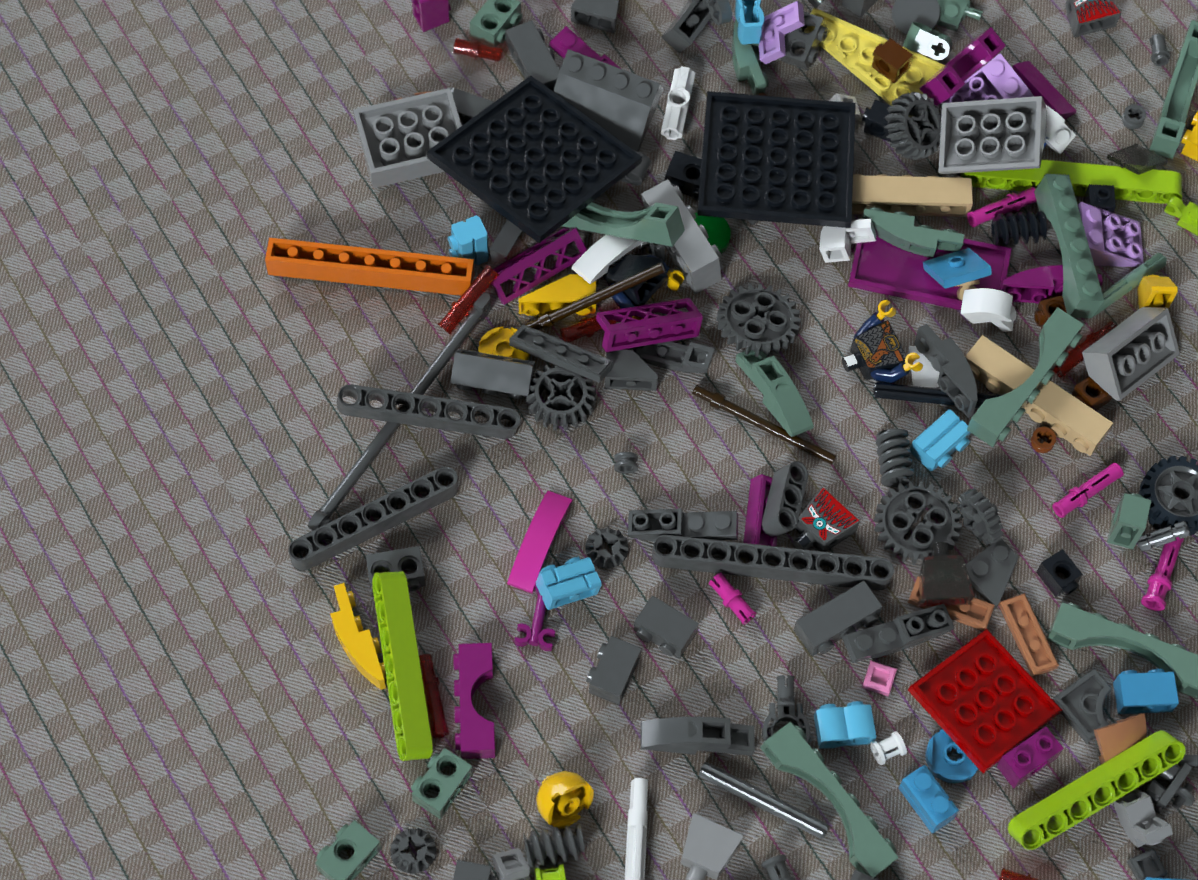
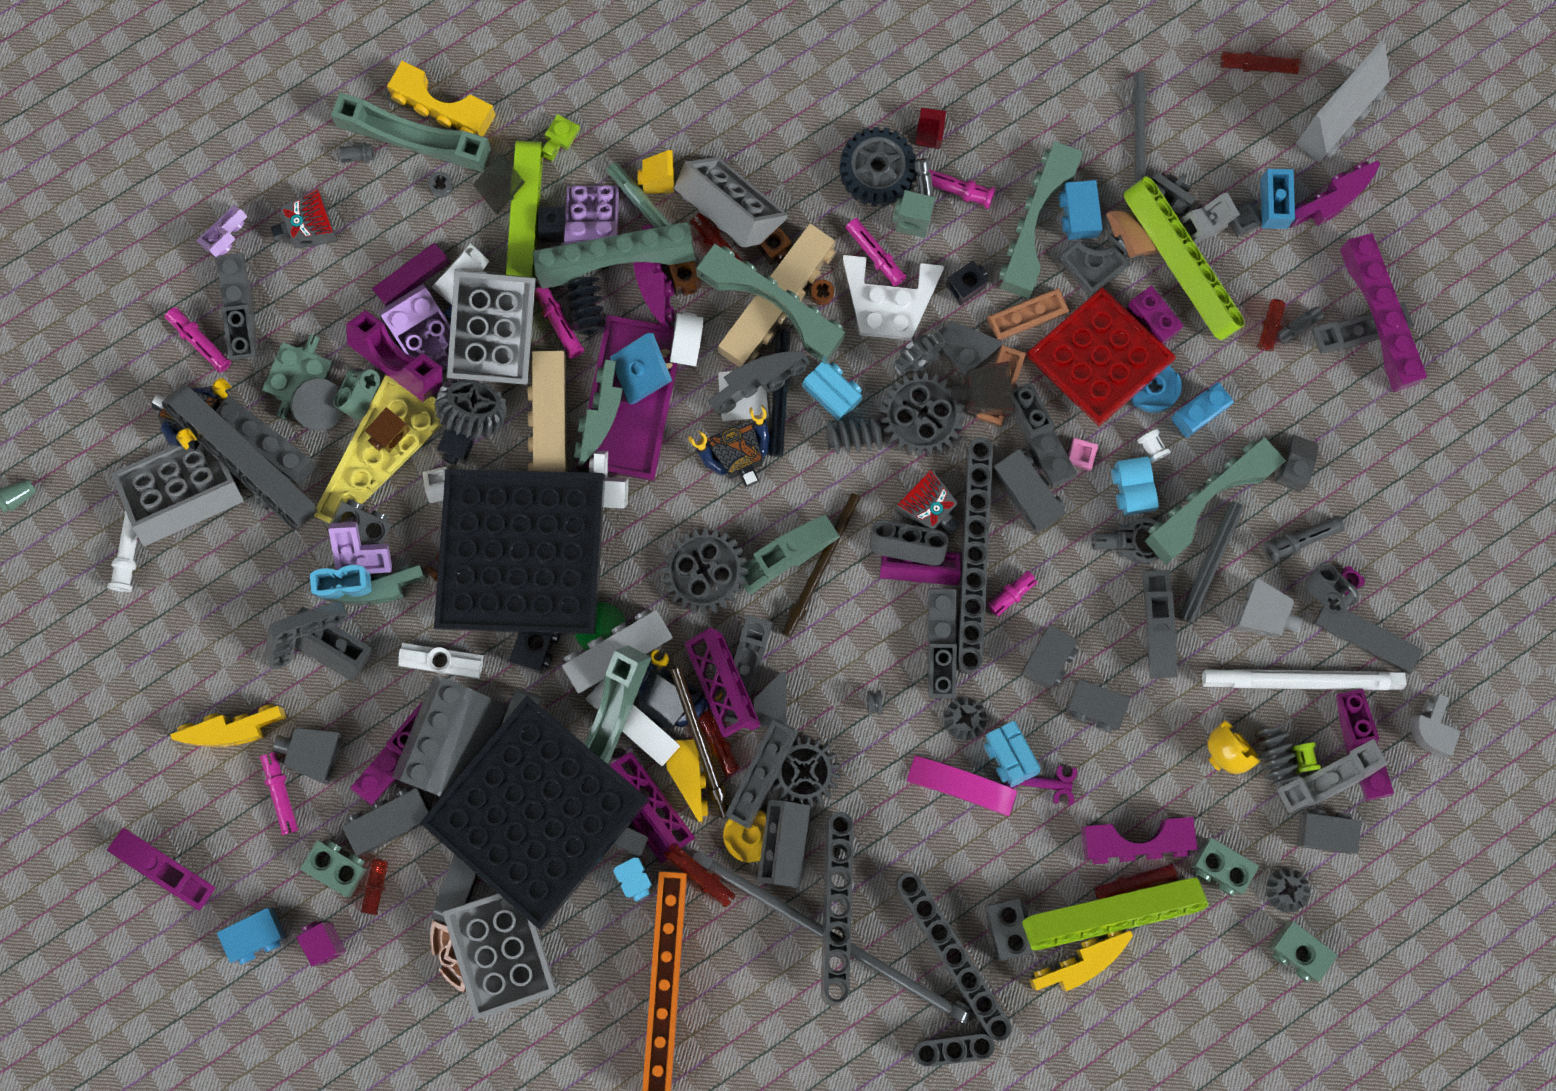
camera: 95 degrees left, 15 degrees up
(280, 502) = (966, 1053): none -> dark grey beam
(1028, 499) = (889, 309): none -> white wing

